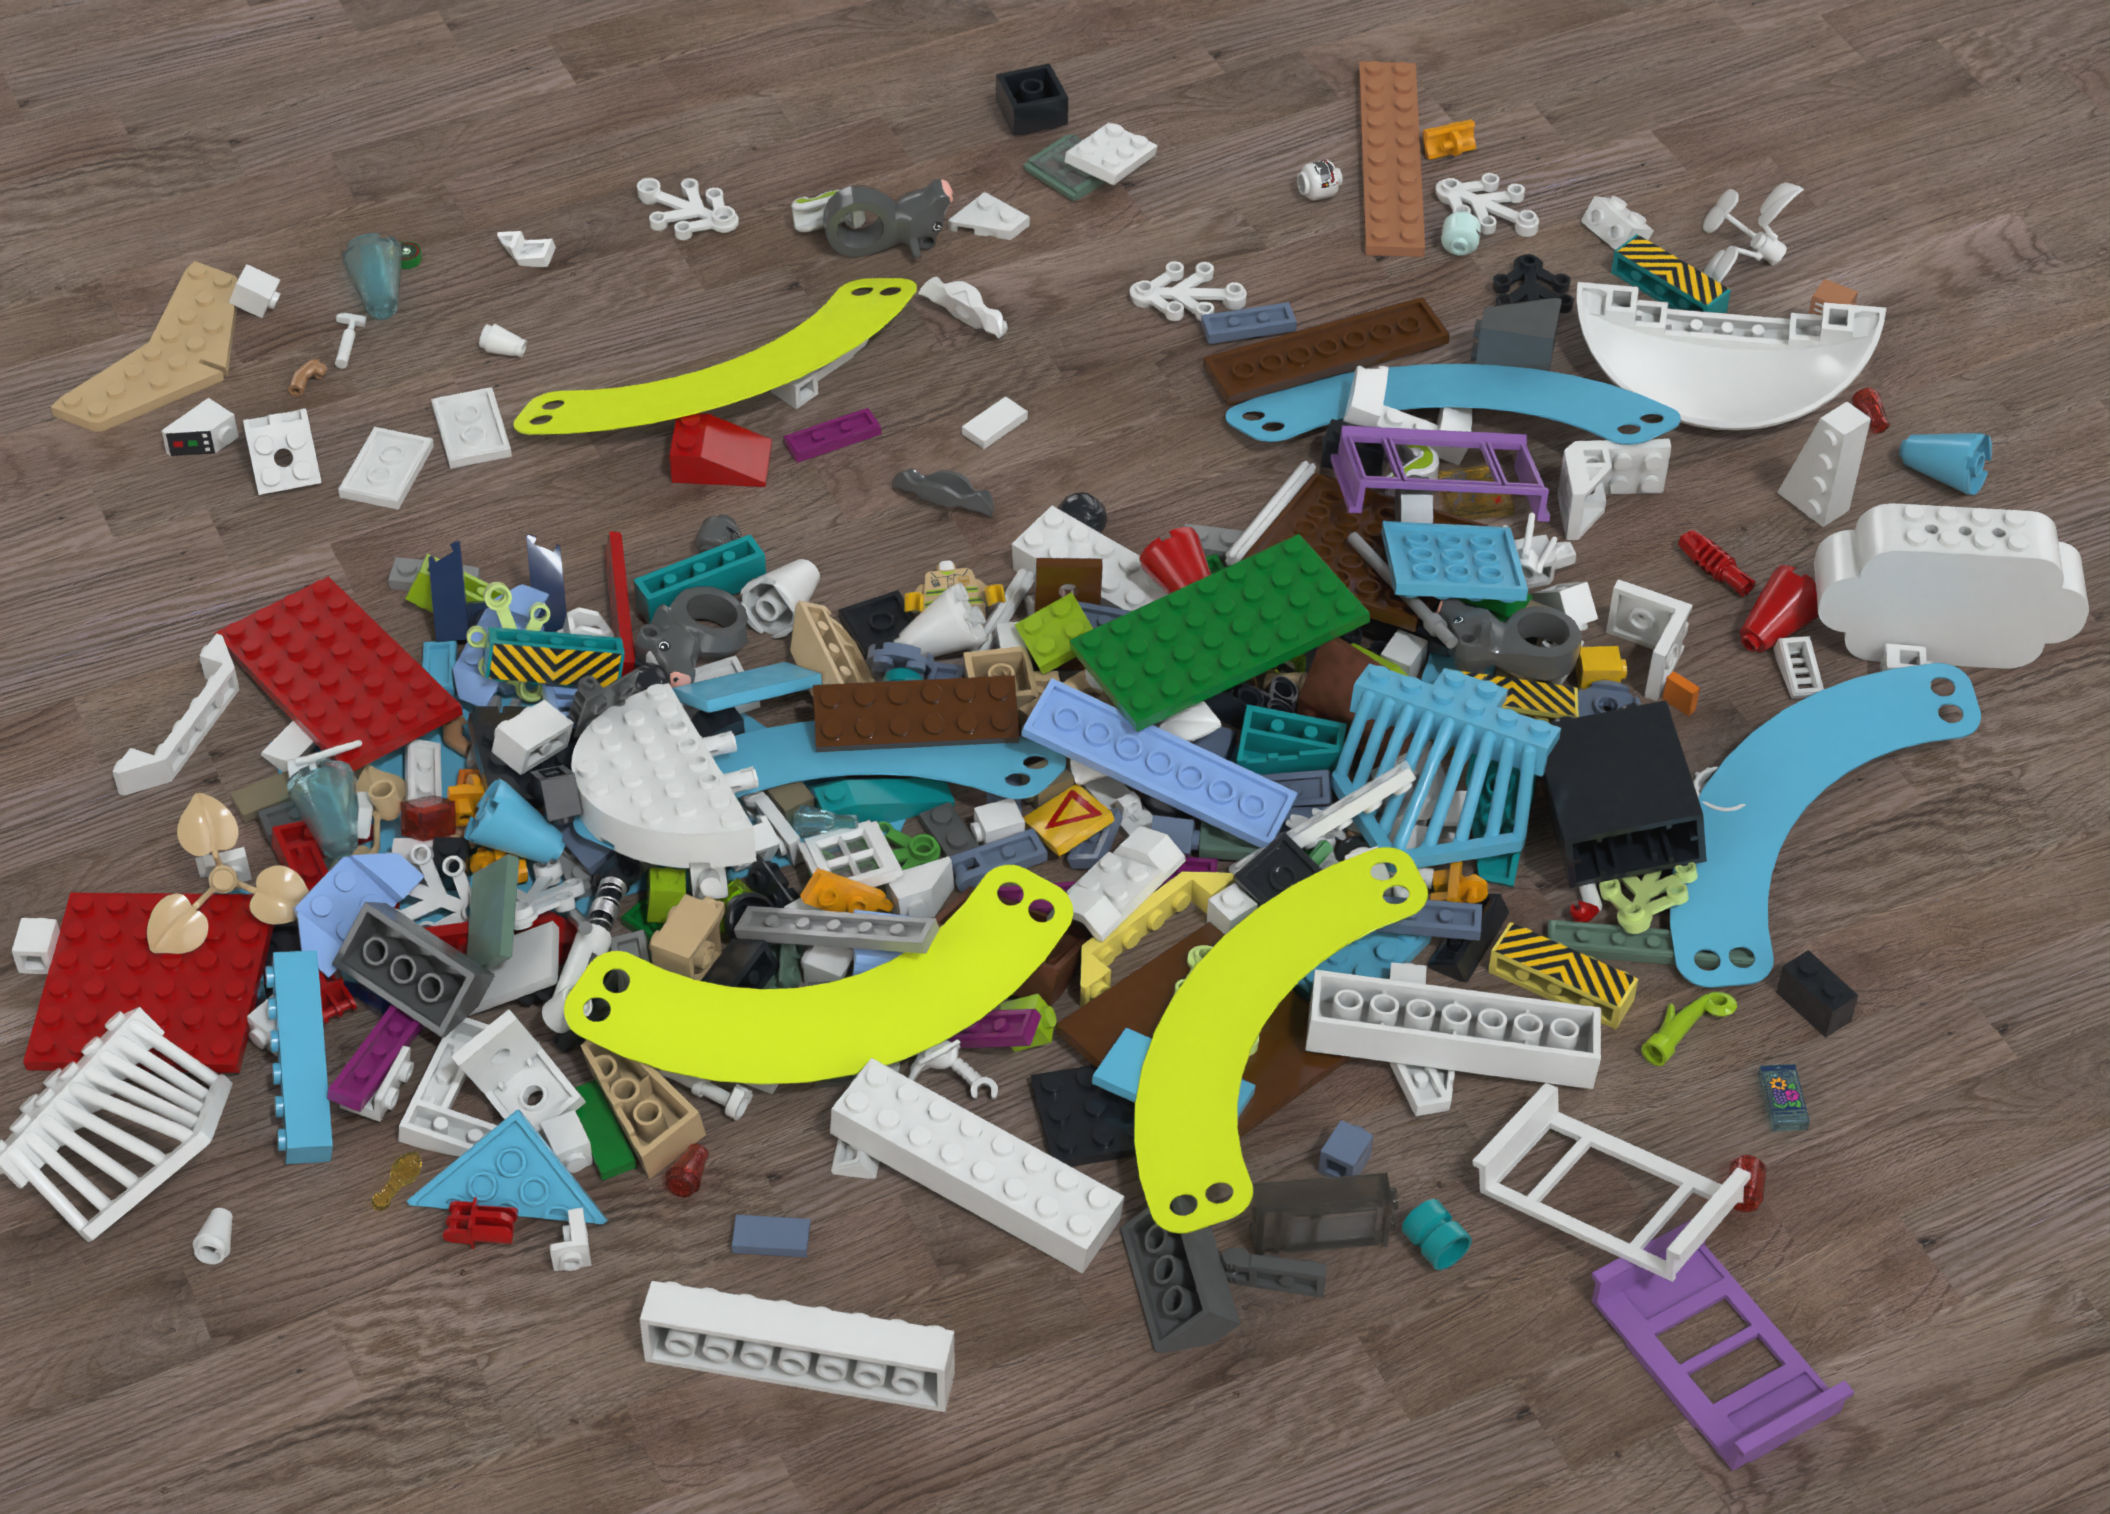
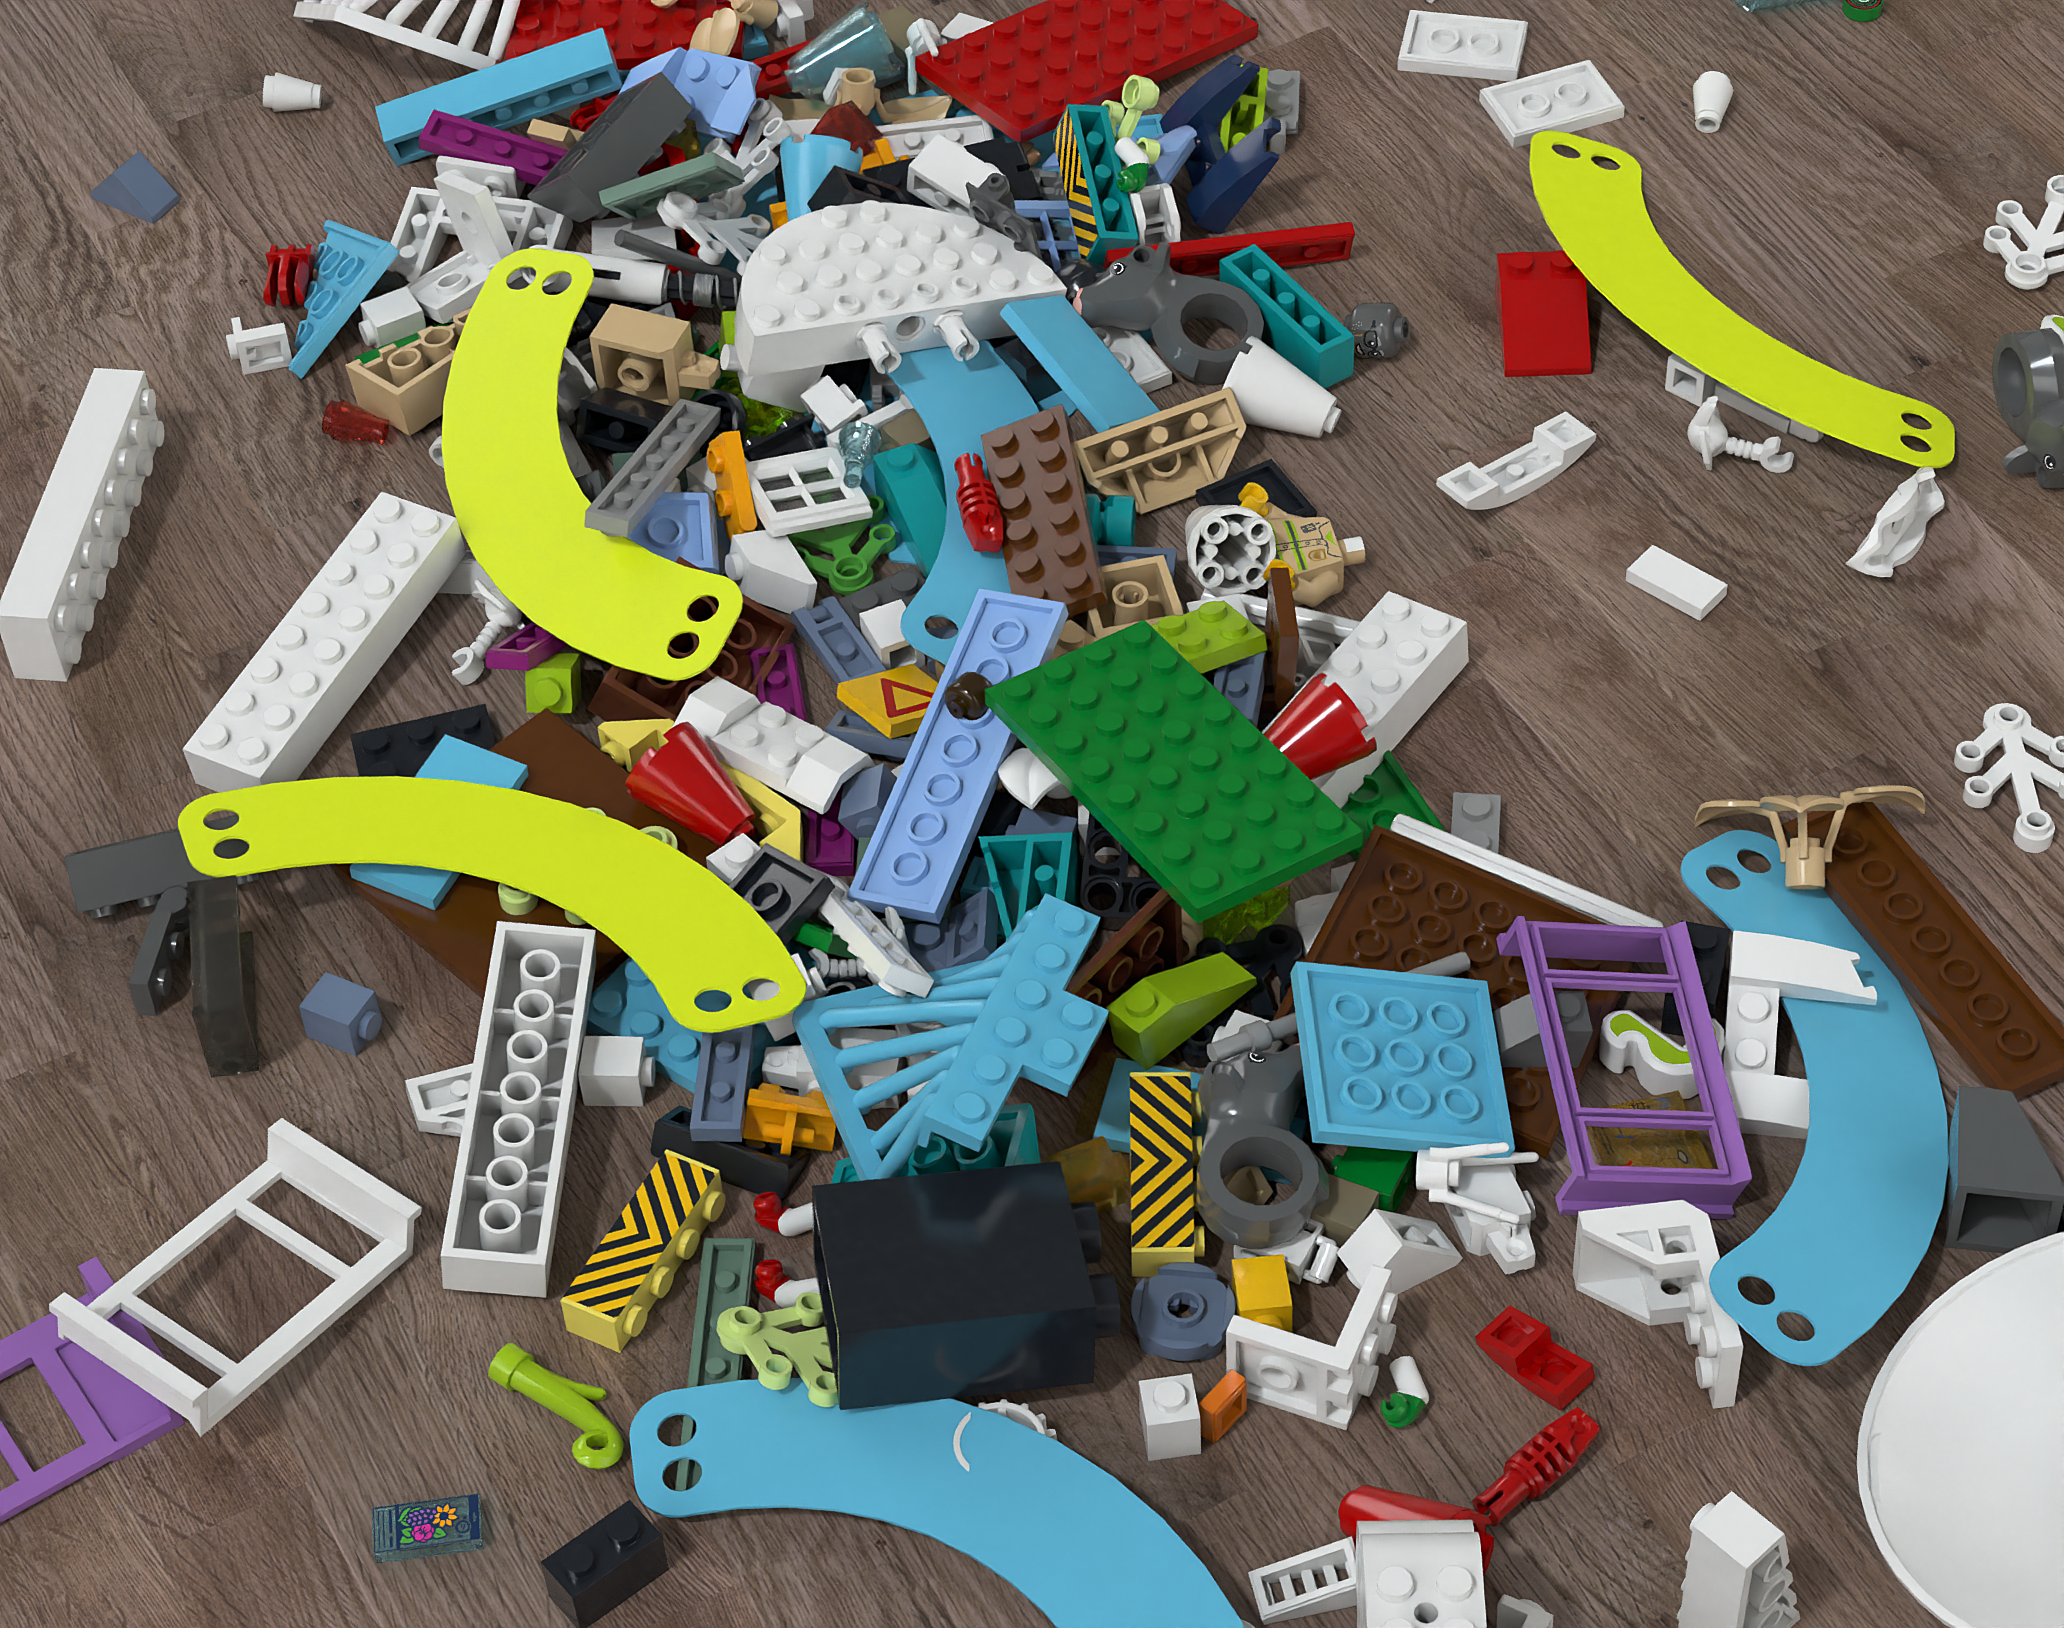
camera: 90 degrees right, 0 degrees up
(316, 1359) = (137, 190): none -> sand blue slope
(364, 1018) = (553, 134): none -> tan slope
(402, 1173) = (368, 213): clear yellow piece -> none
(527, 252) = (1905, 103): white slope -> none
(560, 618) = (1137, 163): none -> arm
(771, 1236) = (263, 505): sand blue tile -> none
(832, 435) = (1614, 425): magenta tile -> none
(869, 482) = (1521, 472): none -> white slope
(870, 377) = (1711, 438): none -> white piece
(898, 656) = (1155, 508): sand blue plate -> none
(898, 748) = (978, 505): none -> red hinge
(946, 489) = (1529, 515): dark grey piece -> none
(1086, 510) = (1500, 686): black piece -> none
(1120, 746) = (967, 696): none -> dark brown piece
(1158, 928) = (691, 787): none -> red cone
(1248, 323) = (1969, 847): sand blue plate -> none
(1267, 382) = (1805, 857): none -> tan plant
(1440, 1238) = (184, 1118): teal wheel -> none
(1530, 904) = (780, 1218): none -> arm
(1636, 558) = (1530, 1357): none -> red slope
(1693, 715) = (1170, 1417): none -> white brick
(1755, 1187) = (265, 1466): clear red brick -> none

